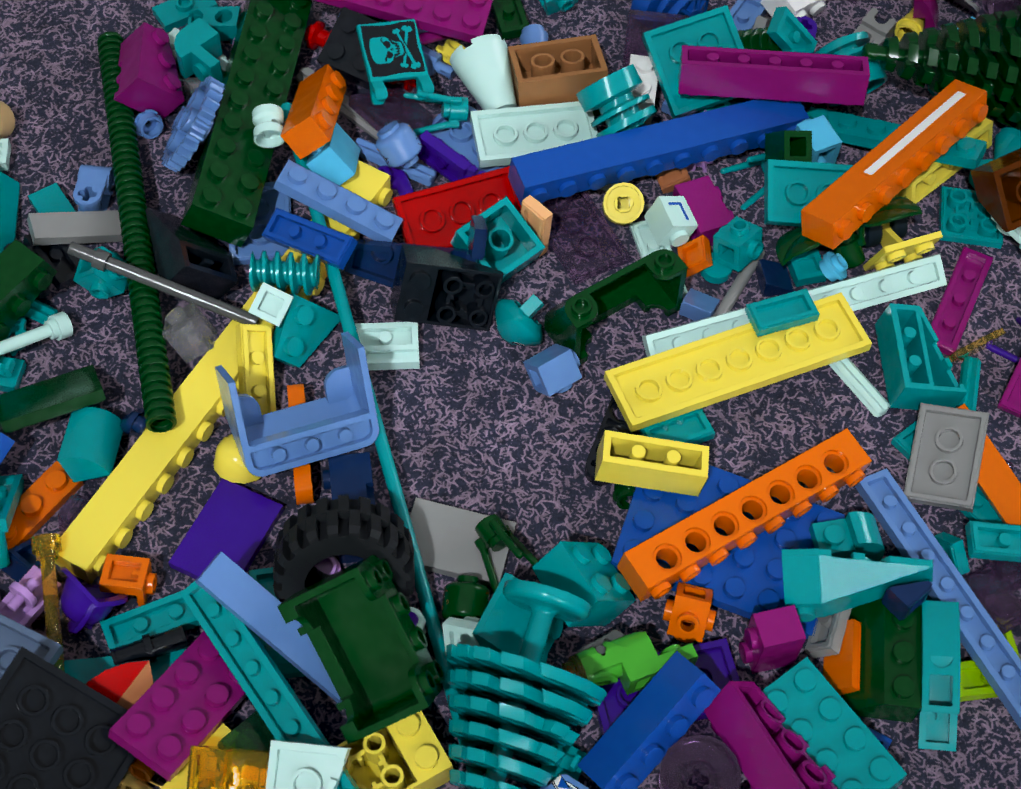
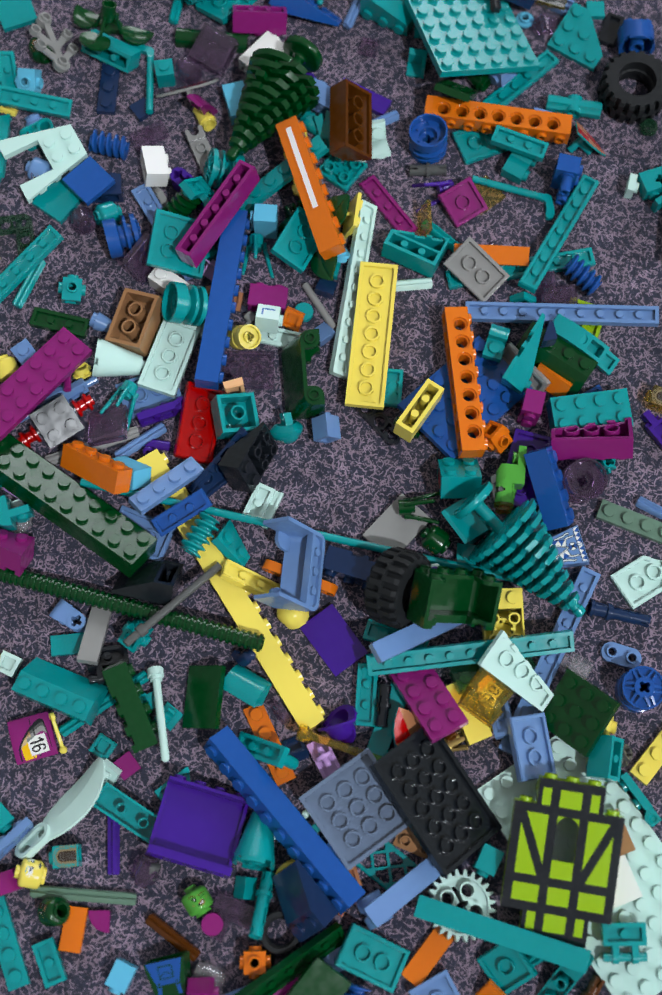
camera: 60 degrees left, 15 degrees up
(128, 576) = (337, 699): orange bracket -> none
(153, 128) = (37, 565): medium blue plate -> none
(189, 332) = (206, 604): clear brick -> none
(193, 124) = (63, 539): medium blue gear -> none
(268, 125) = (97, 497): light aqua wheel -> none
(271, 304) = (218, 552): light aqua plate -> none
(392, 54) = (80, 406): flag -> none
(398, 144) = (141, 433): medium blue head -> none
(460, 631) = (458, 550): light aqua tile -> none
(477, 237) = (238, 423): dark blue tile -> none
(737, 244) = (302, 293): teal brick -> none
(781, 312) = (358, 297): teal tile -> none
(789, 145) = (264, 233): dark green brick -> none

